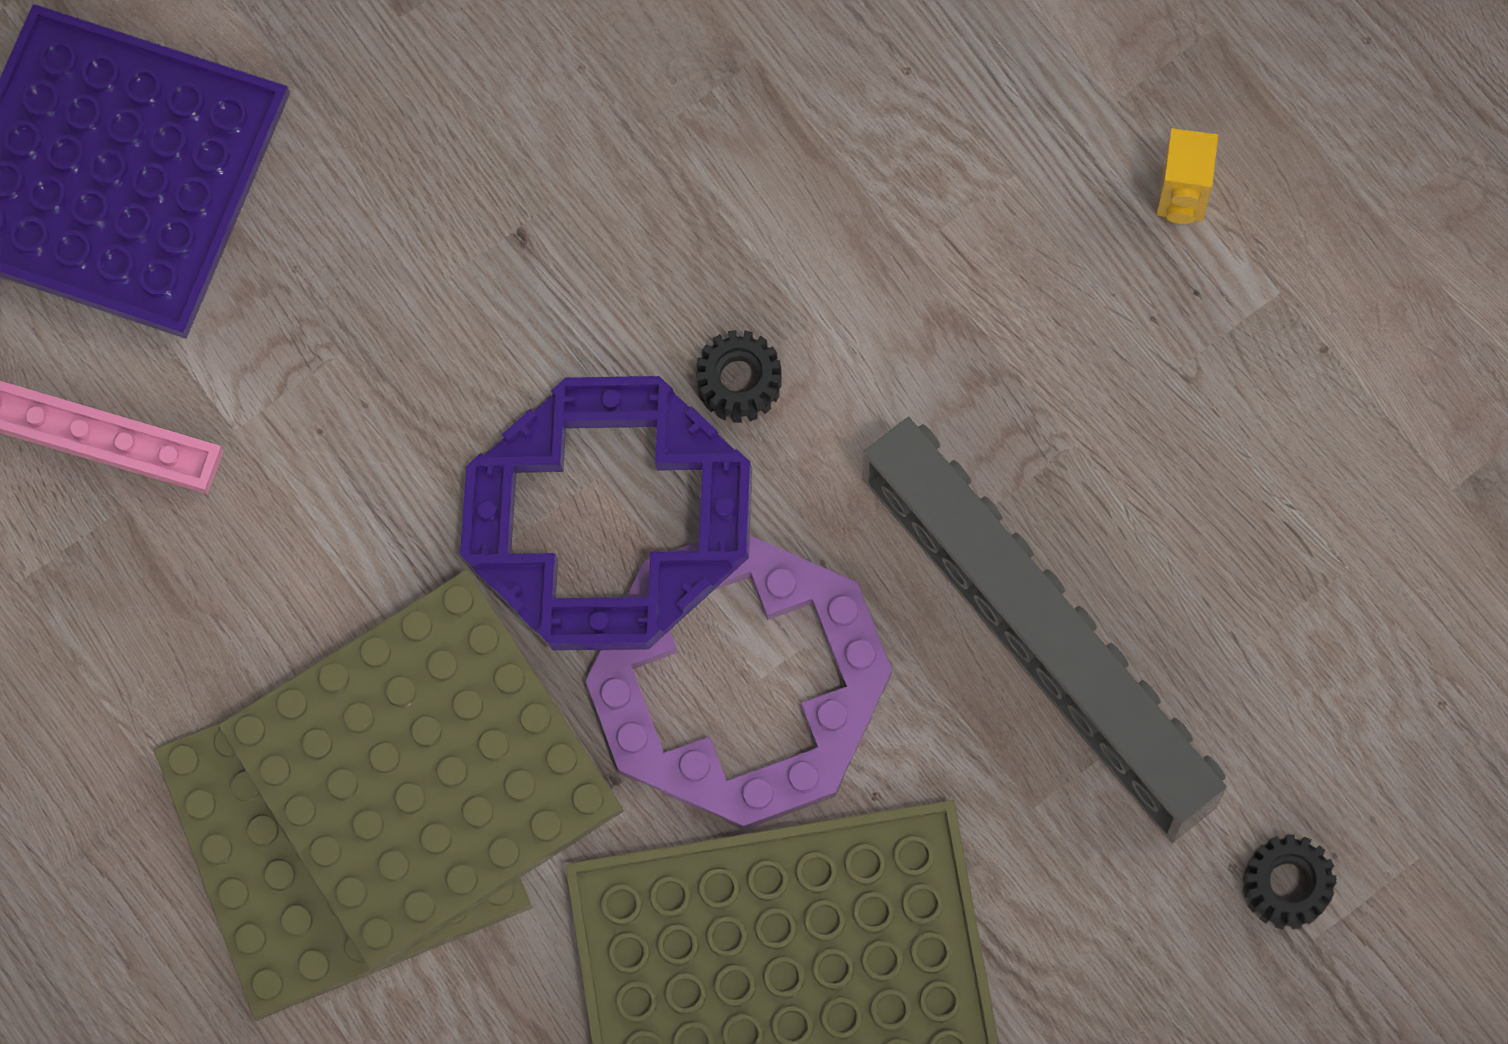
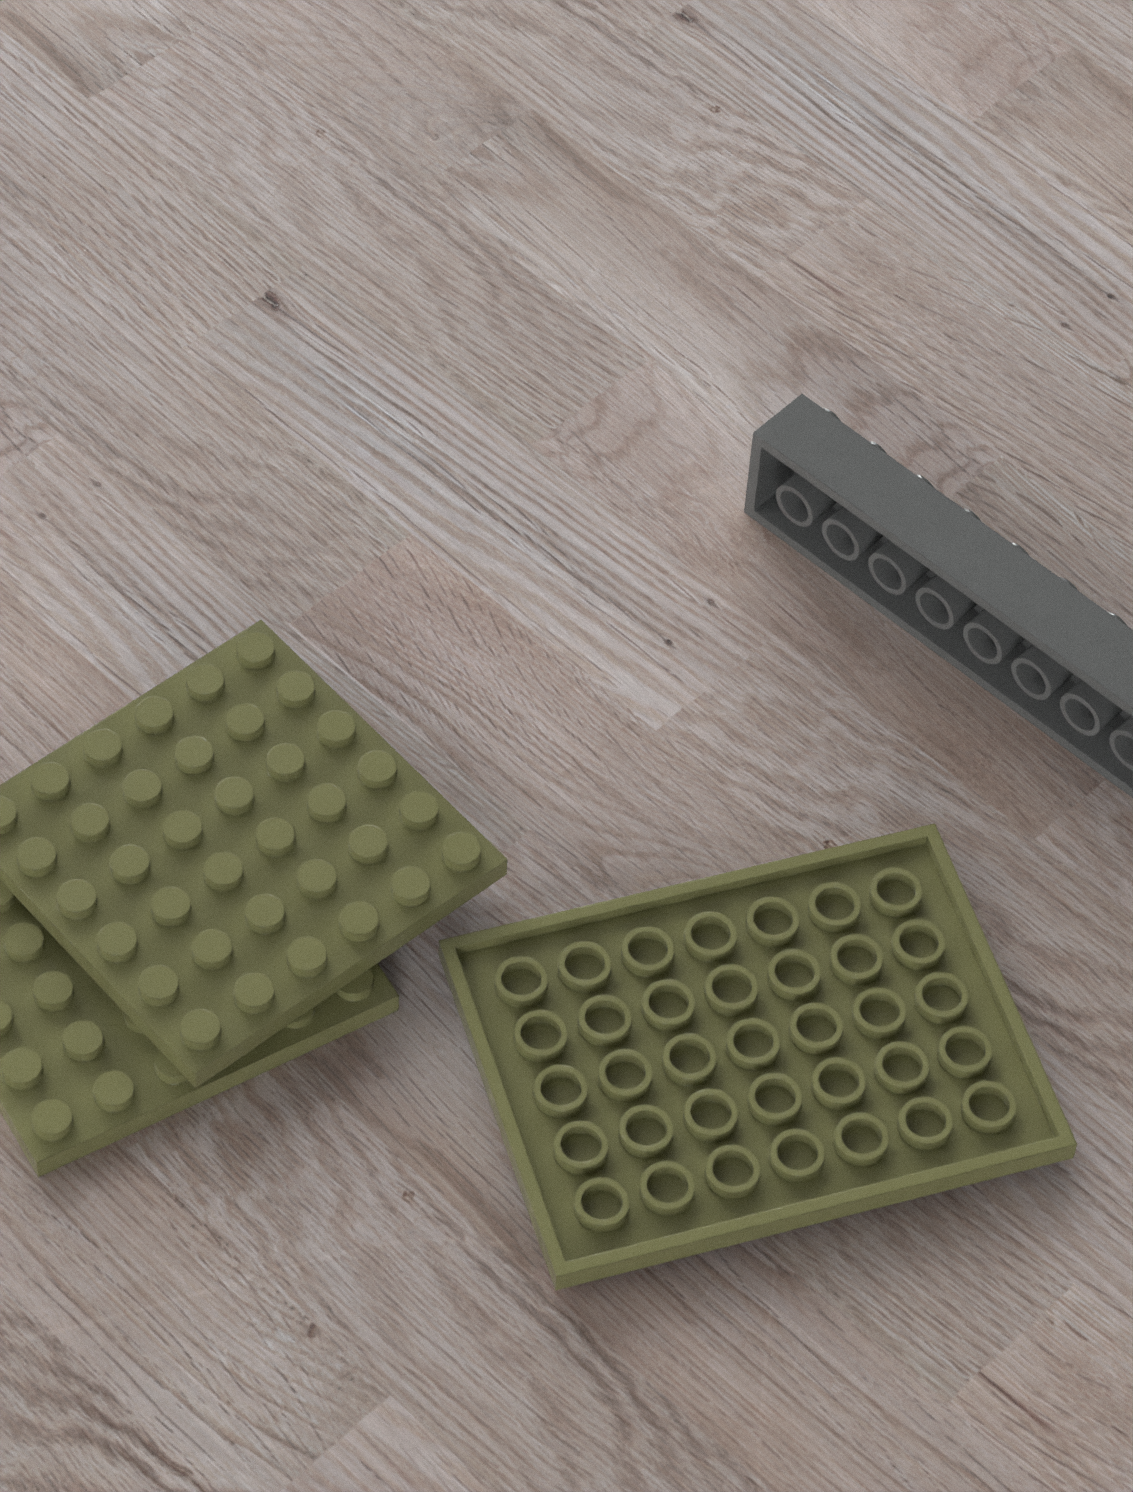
camera: 15 degrees left, 20 degrees down
(675, 578) = (534, 607): dark purple plate -> none
(744, 349) = (571, 384): black tyre -> none
(835, 719) = (590, 831): medium lavender plate -> none
(1187, 176) = (1079, 161): yellow brick -> none

